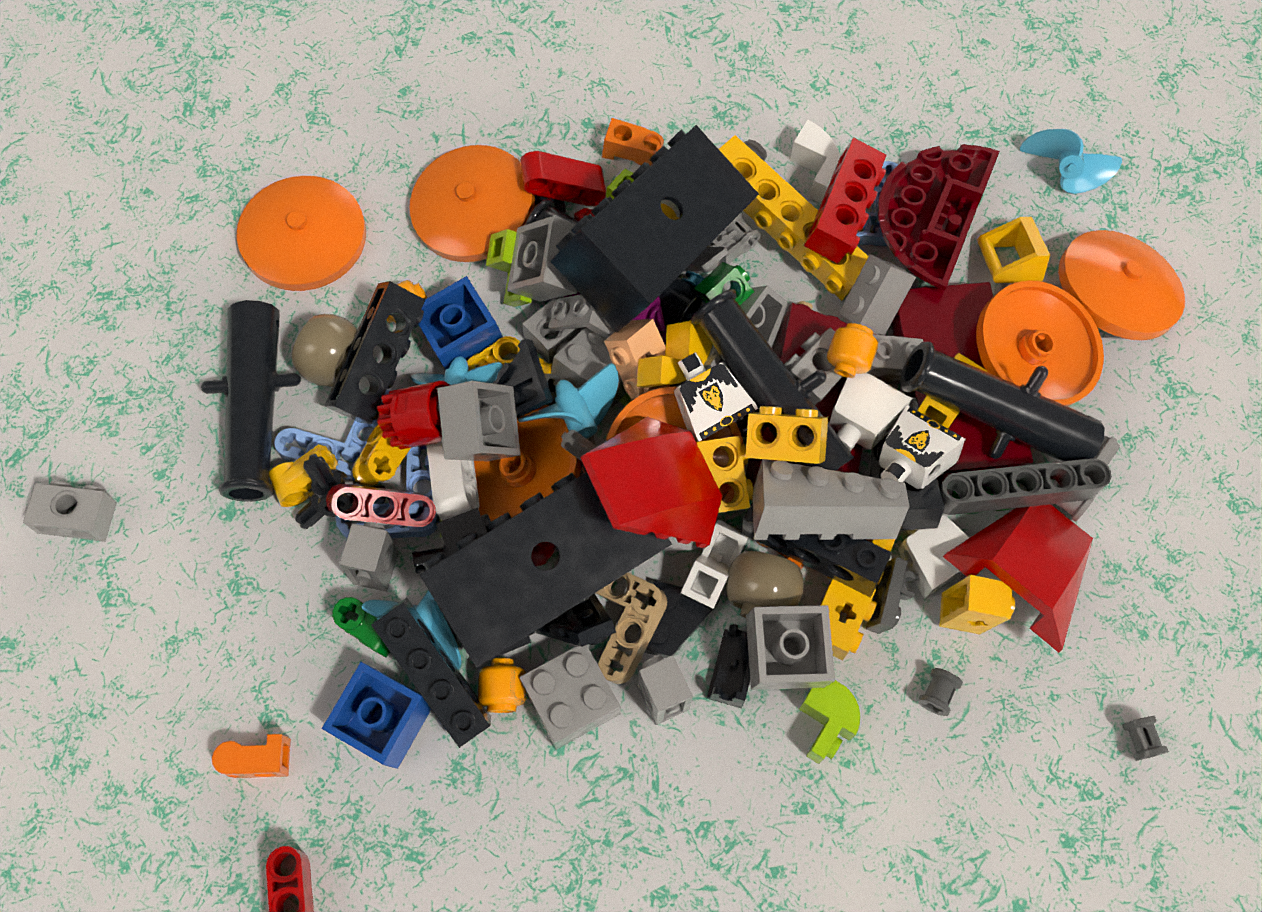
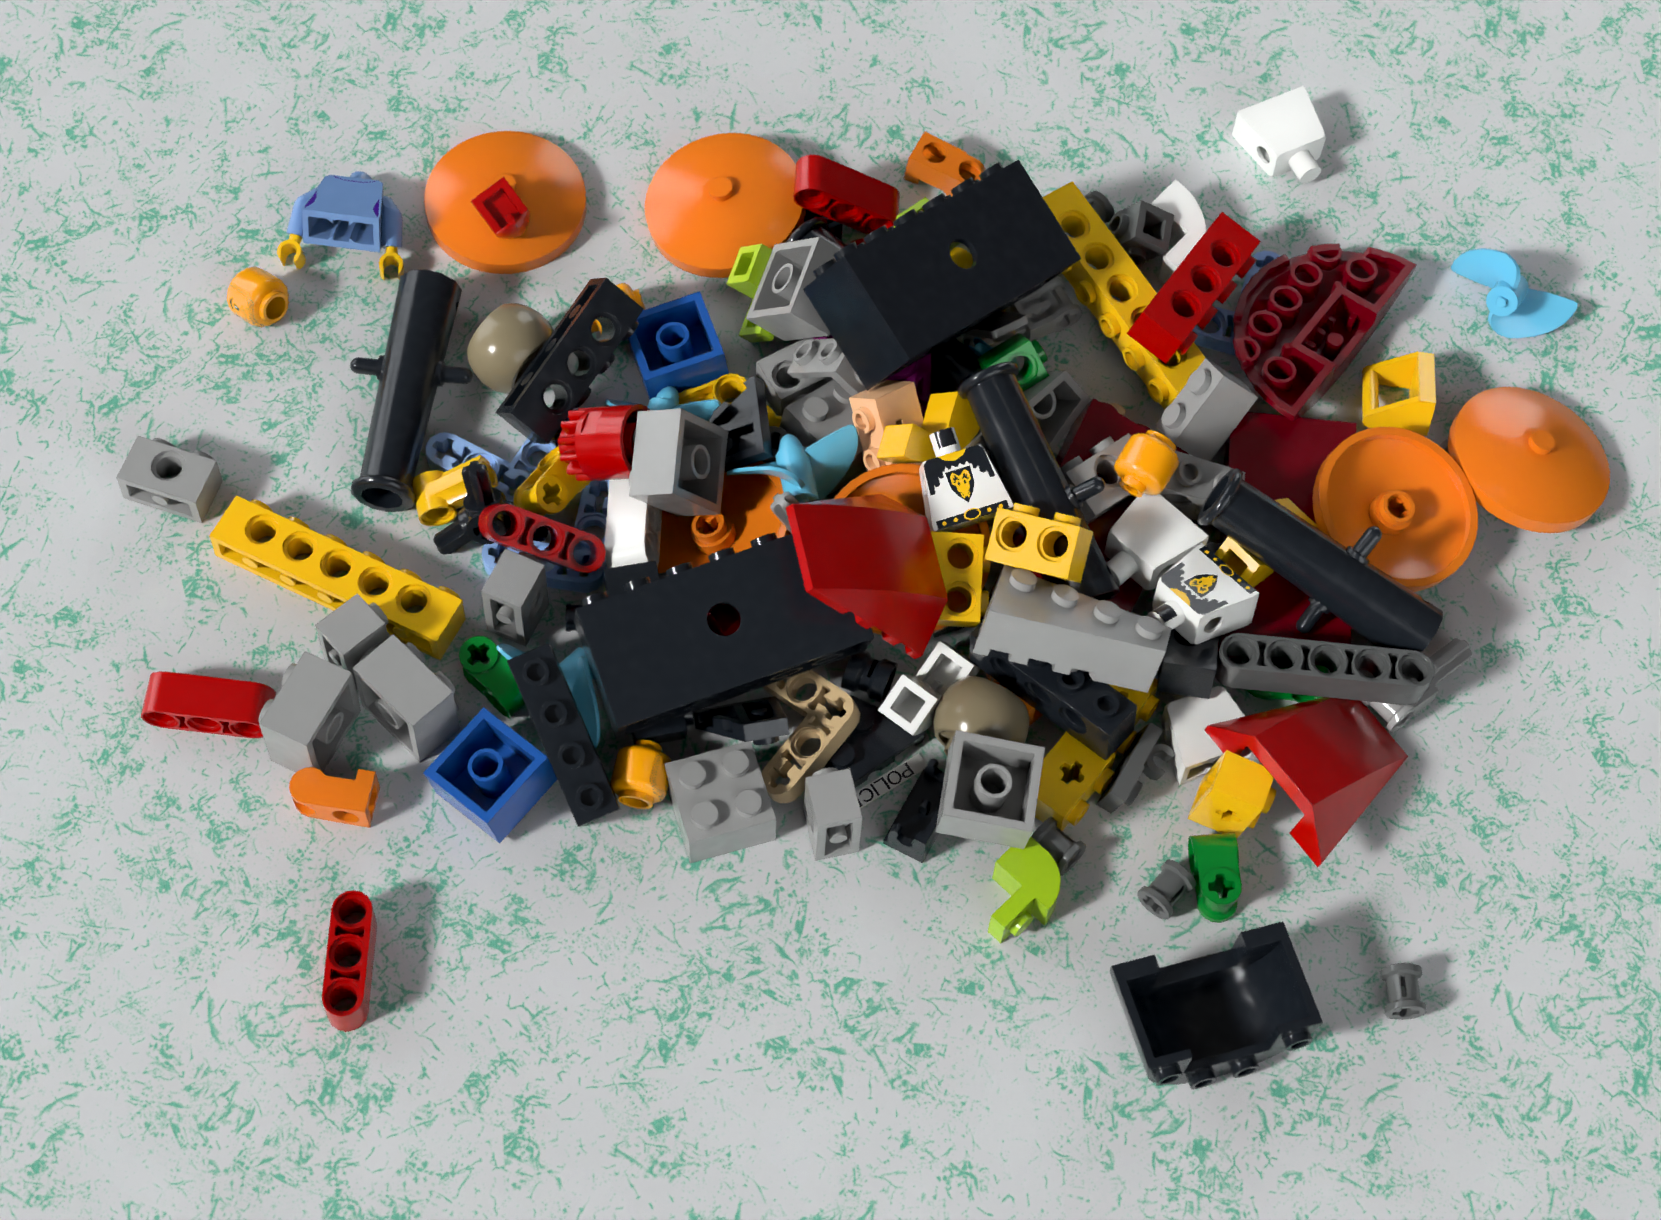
camera: 10 degrees right, 5 degrees down
(117, 346) = (258, 297): none -> light orange head
(133, 700) = (205, 704): none -> red beam
(138, 537) = (248, 521): none -> yellow brick
(177, 267) = (346, 215): none -> medium blue torso
(217, 696) = (309, 714): none -> light grey brick
(245, 622) = (352, 633): none -> light grey brick
(292, 660) = (407, 697): none -> light grey brick
(299, 240) = (502, 210): none -> red plate
(656, 564) = (869, 676): none -> black wheel
(692, 651) = (890, 780): none -> white sticker
(793, 162) = (1142, 231): none -> dark grey brick
(848, 673) = (1059, 845): none -> dark grey bush
(875, 72) = (1282, 134): none -> white torso
(974, 665) = (1215, 869): none -> green piece
(1014, 793) = (1218, 1009): none -> black cylinder

